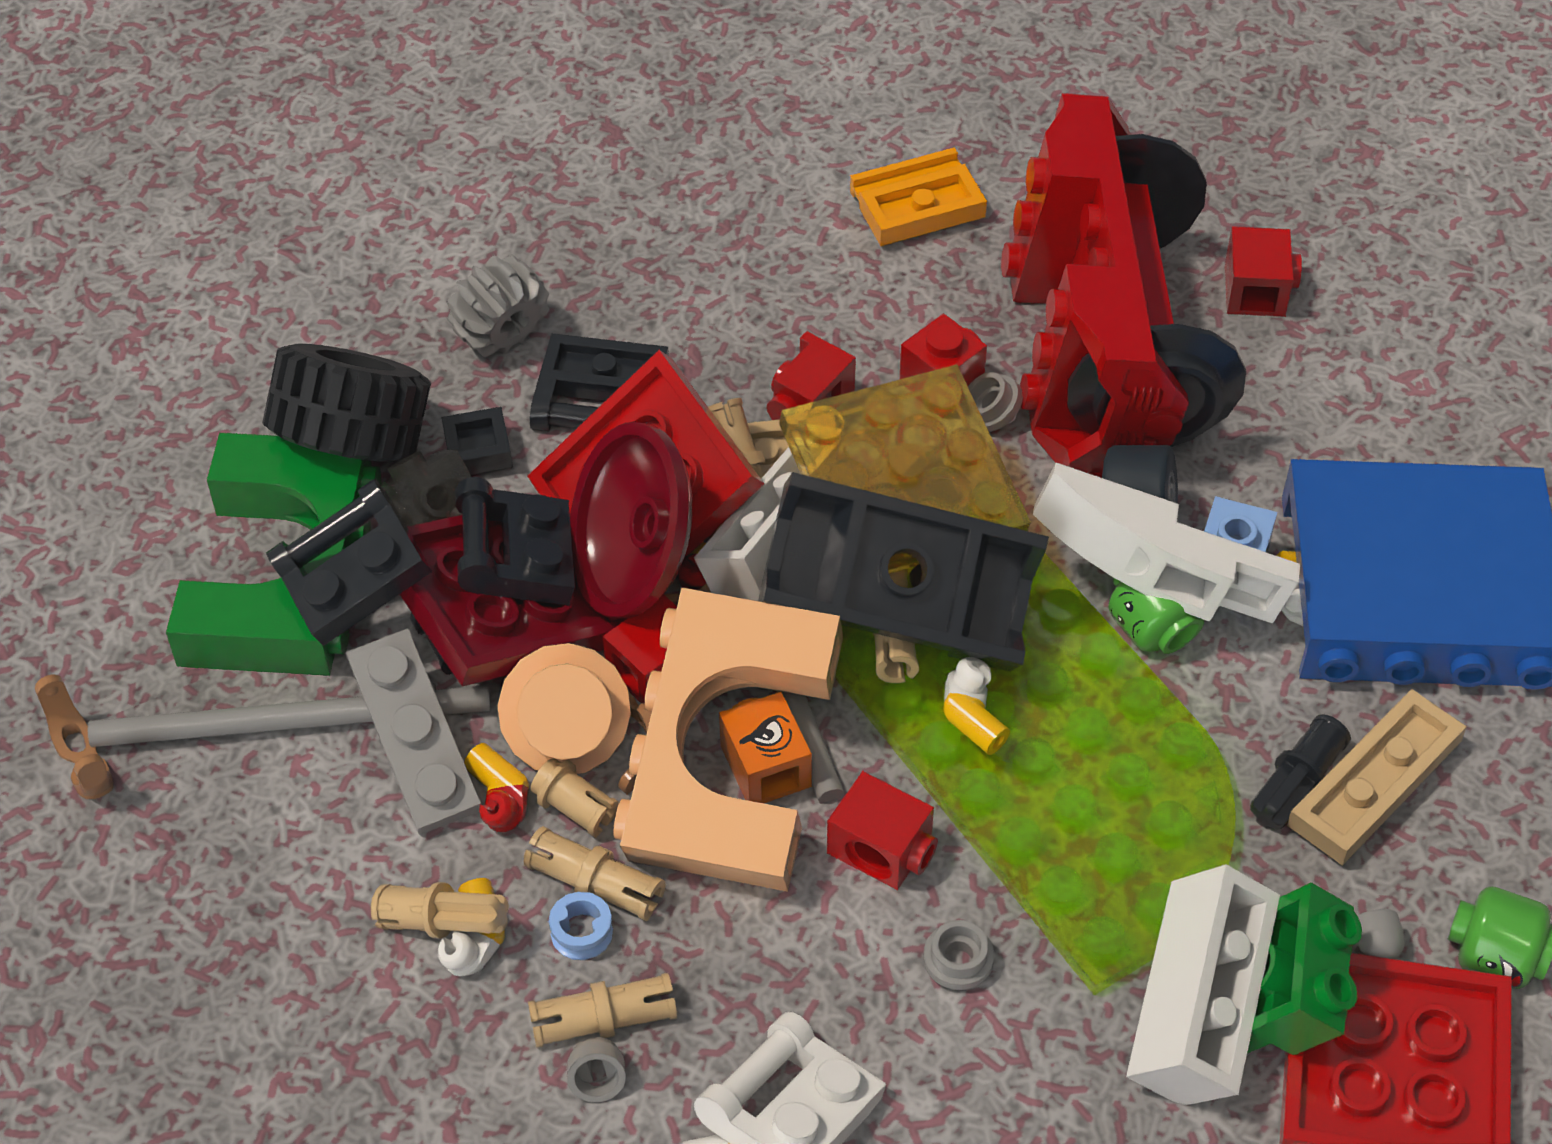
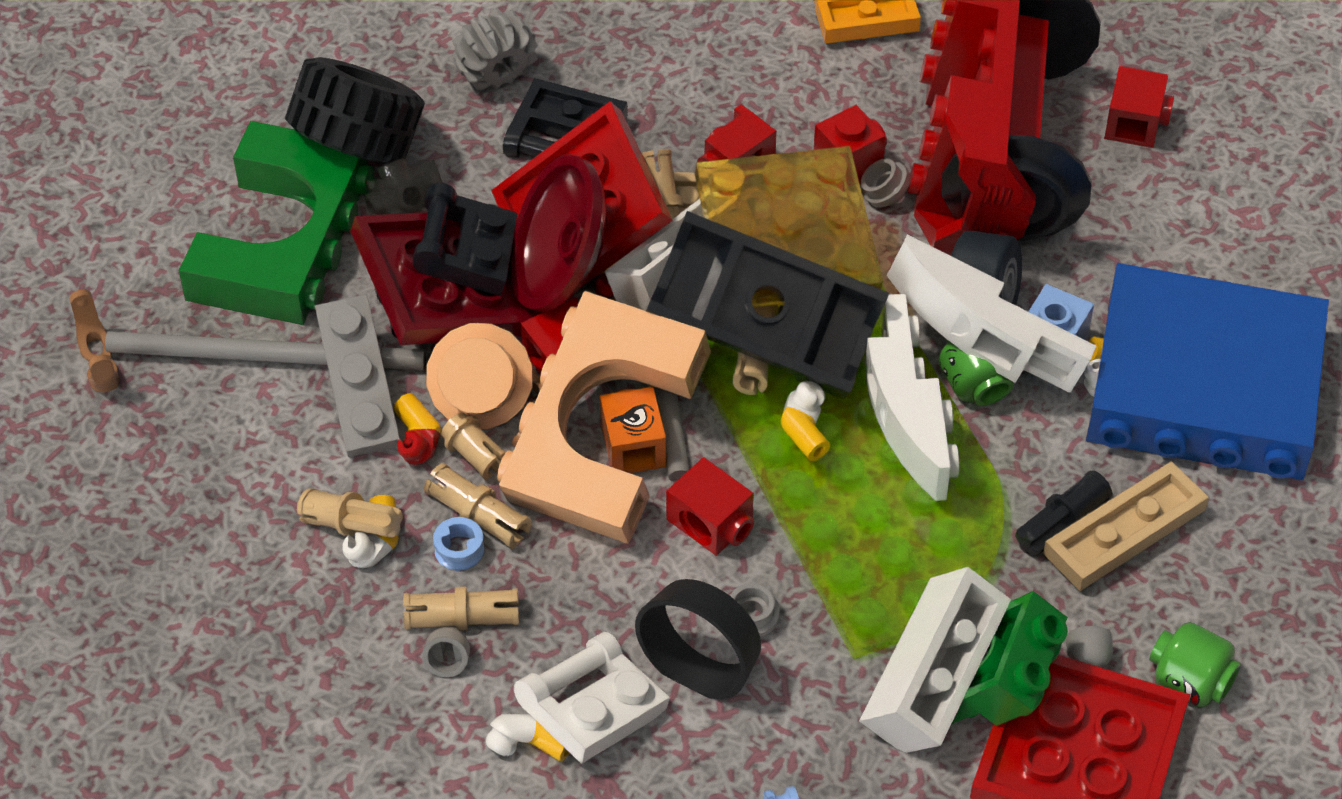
camera: 10 degrees right, 0 degrees up
(358, 576) = (335, 247): black plate -> none
(479, 439) = (458, 156): black plate -> none
(895, 1037) = (682, 662): none -> black tyre
(1095, 671) = (909, 404): none -> white slope

